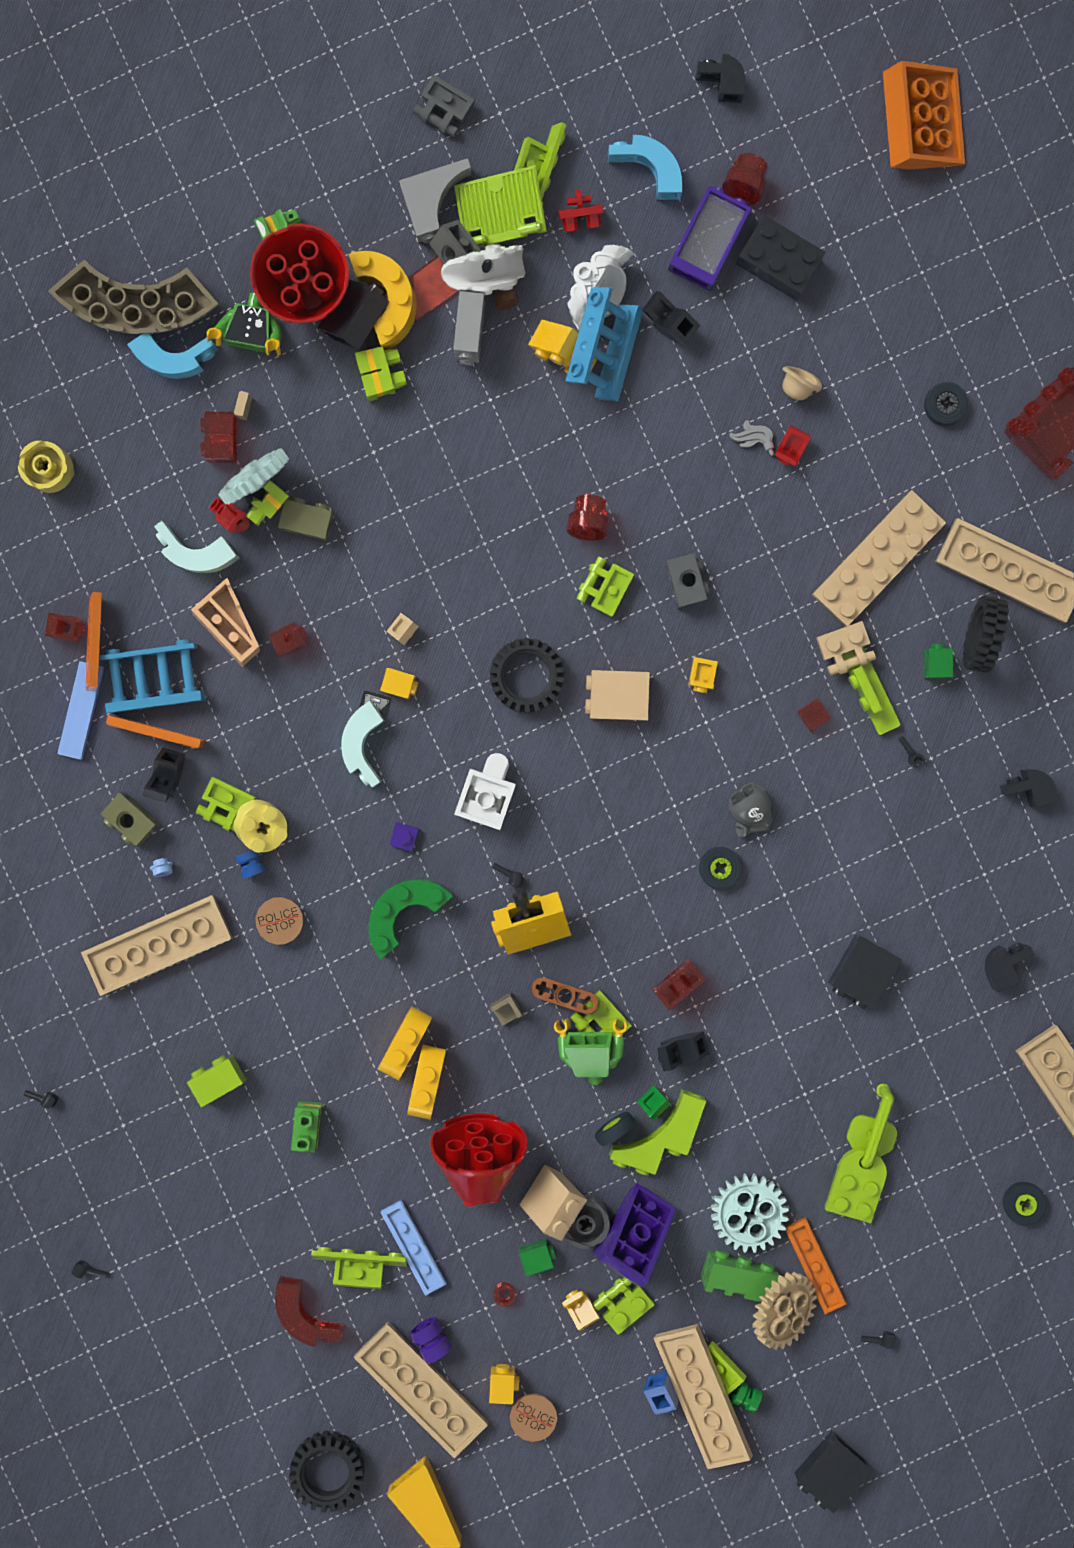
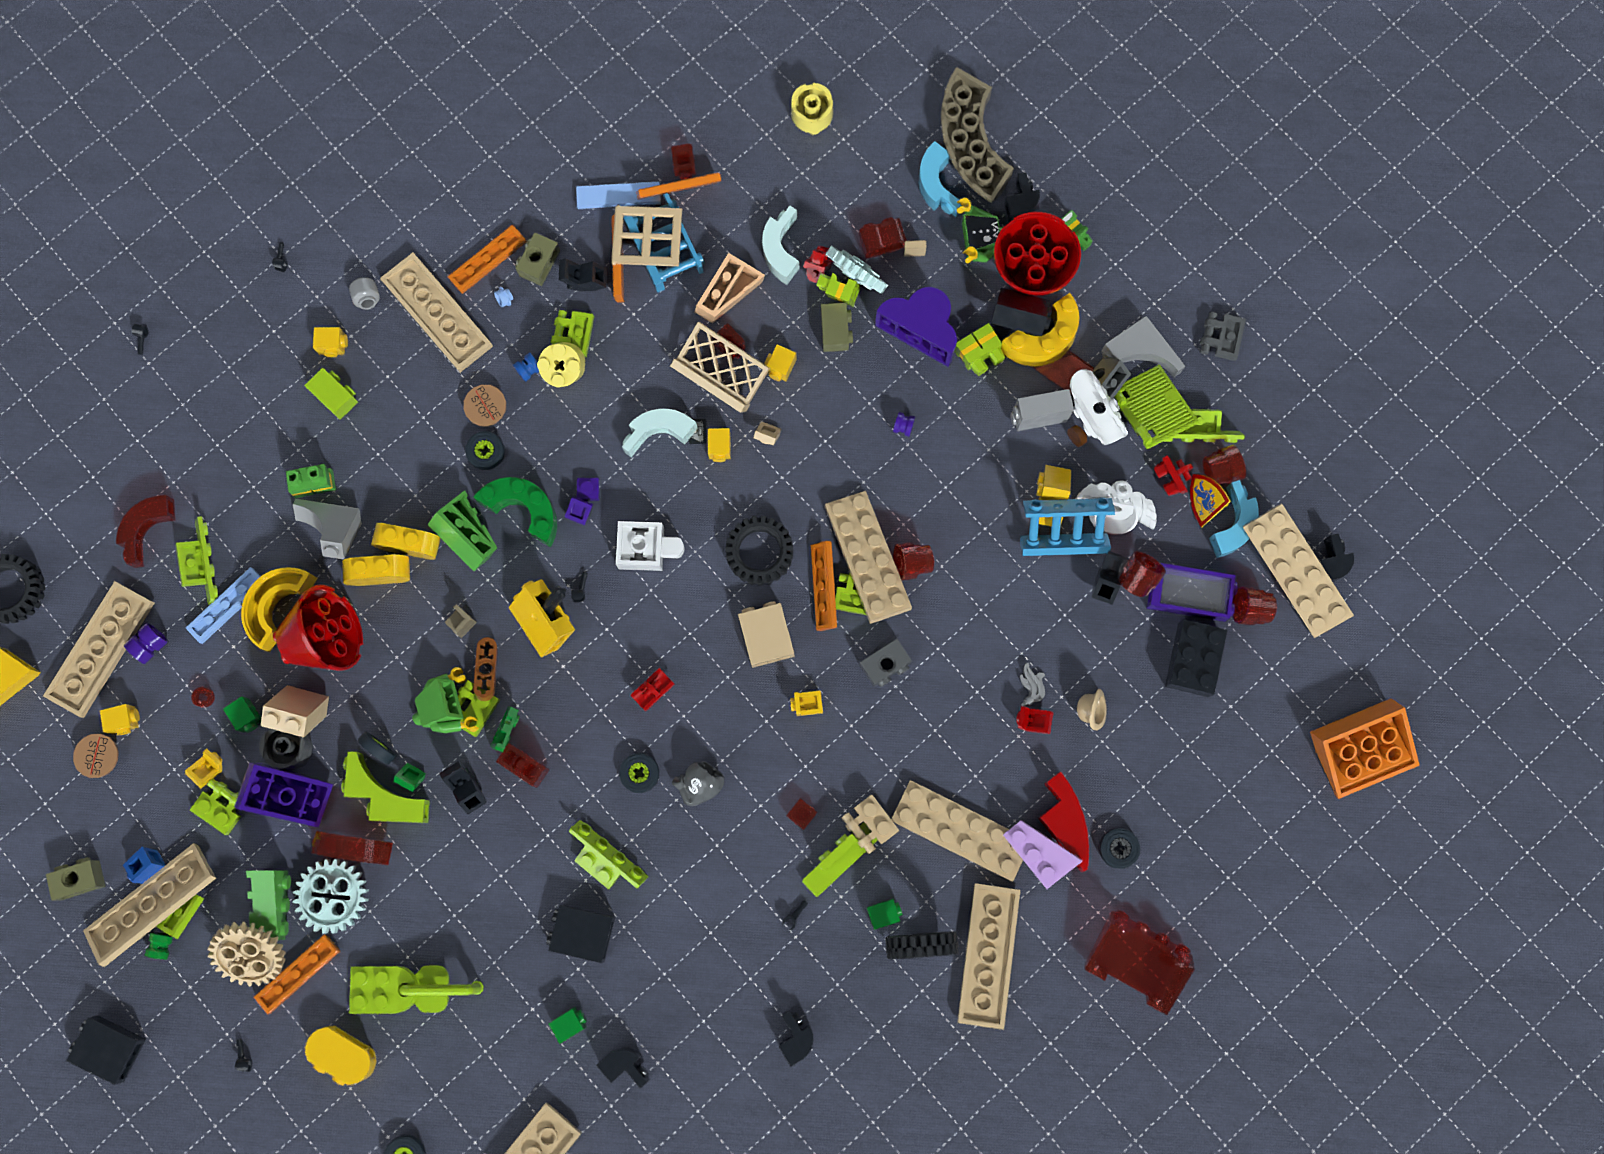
camera: 75 degrees right, 10 degrees down
(111, 874) = (487, 259): none -> orange tile
(111, 1017) = (364, 293): none -> light grey head
(142, 692) = (646, 236): none -> tan window
(156, 1067) = (329, 341): none -> yellow brick
(228, 269) = (1024, 201): none -> black brick
(324, 922) = (477, 443): none -> black bush
(327, 674) = (709, 382): none -> tan fence
(329, 592) = (780, 363): none -> yellow brick
(334, 424) = (921, 323): none -> dark purple brick
(361, 1112) = (335, 523): none -> light grey arch
(414, 979) = (463, 532): none -> bright green wedge
(423, 1210) = (262, 598): none -> yellow brick
(425, 852) = (578, 510): none -> dark purple plate
(437, 480) = (904, 424): none -> dark purple wheel
(569, 564) = (868, 557): none -> tan plate
(585, 619) = (823, 586): none -> orange tile
(588, 155) = (1225, 465): none -> clear red piece
(616, 186) = (1206, 498): none -> shield
(636, 993) = (502, 734): none -> green wing
(640, 829) = (652, 689): none -> red hips
(657, 1479) = (61, 880): none -> olive brick
(679, 283) = (1141, 574): none -> clear red piece
(710, 1181) = (351, 848): none -> clear red arch
(724, 118) = (1298, 570): none -> tan plate
(797, 928) = (603, 859): none -> lime bracket
(903, 447) = (1066, 820): none -> red slope
(909, 1242) = (340, 1055): none -> yellow brick
(932, 484) = (1042, 855): none -> lavender wing
(949, 1009) = (568, 1025): none -> green brick

